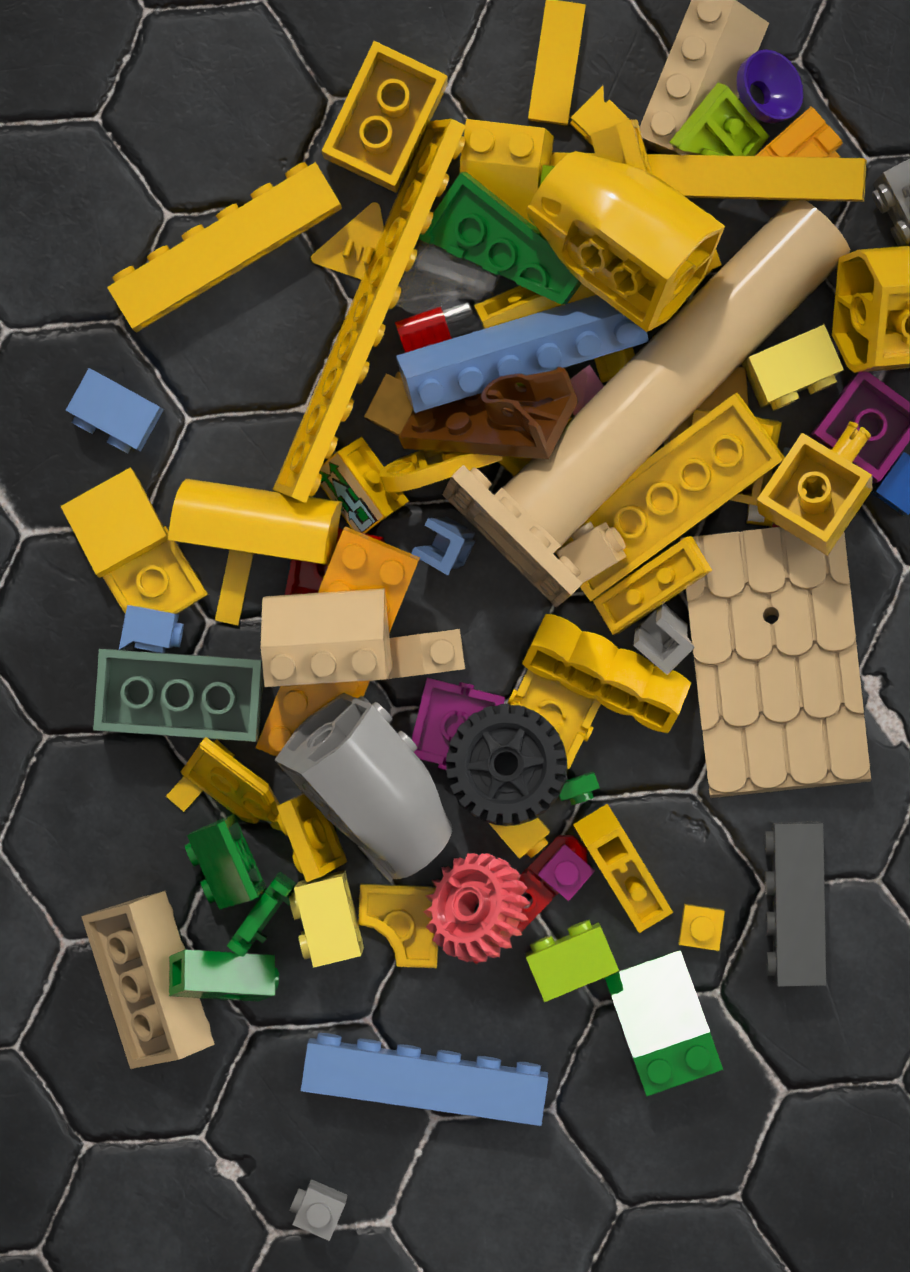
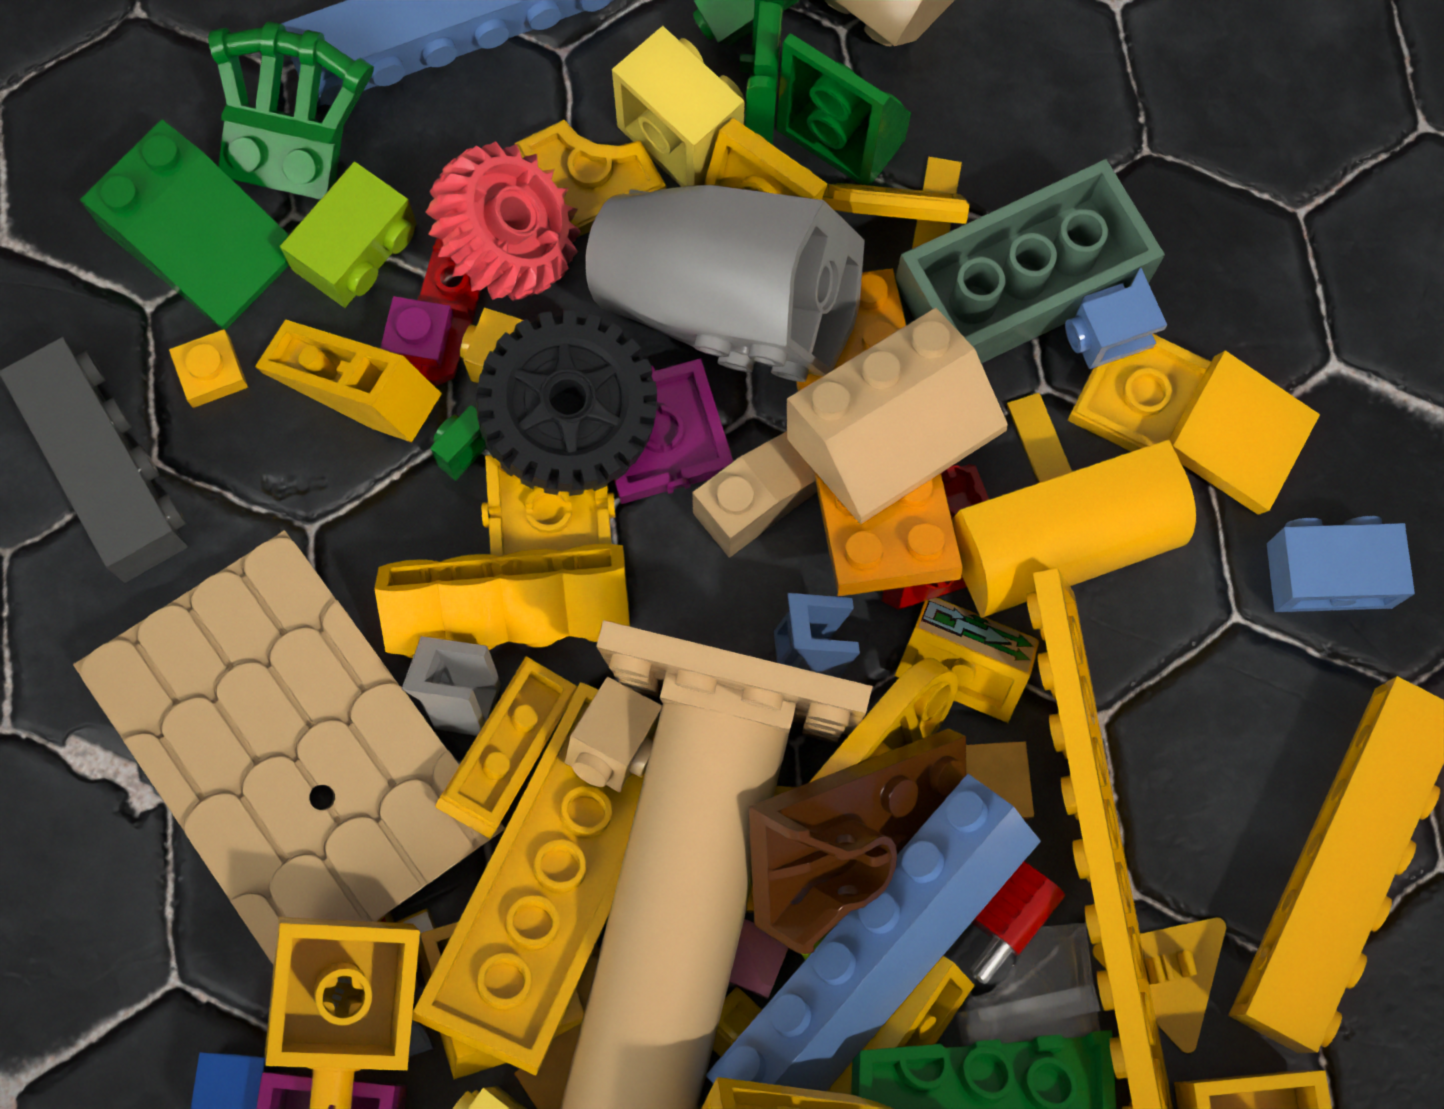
camera: 150 degrees right, 15 degrees down
(582, 1046) = (274, 146): none -> green plate

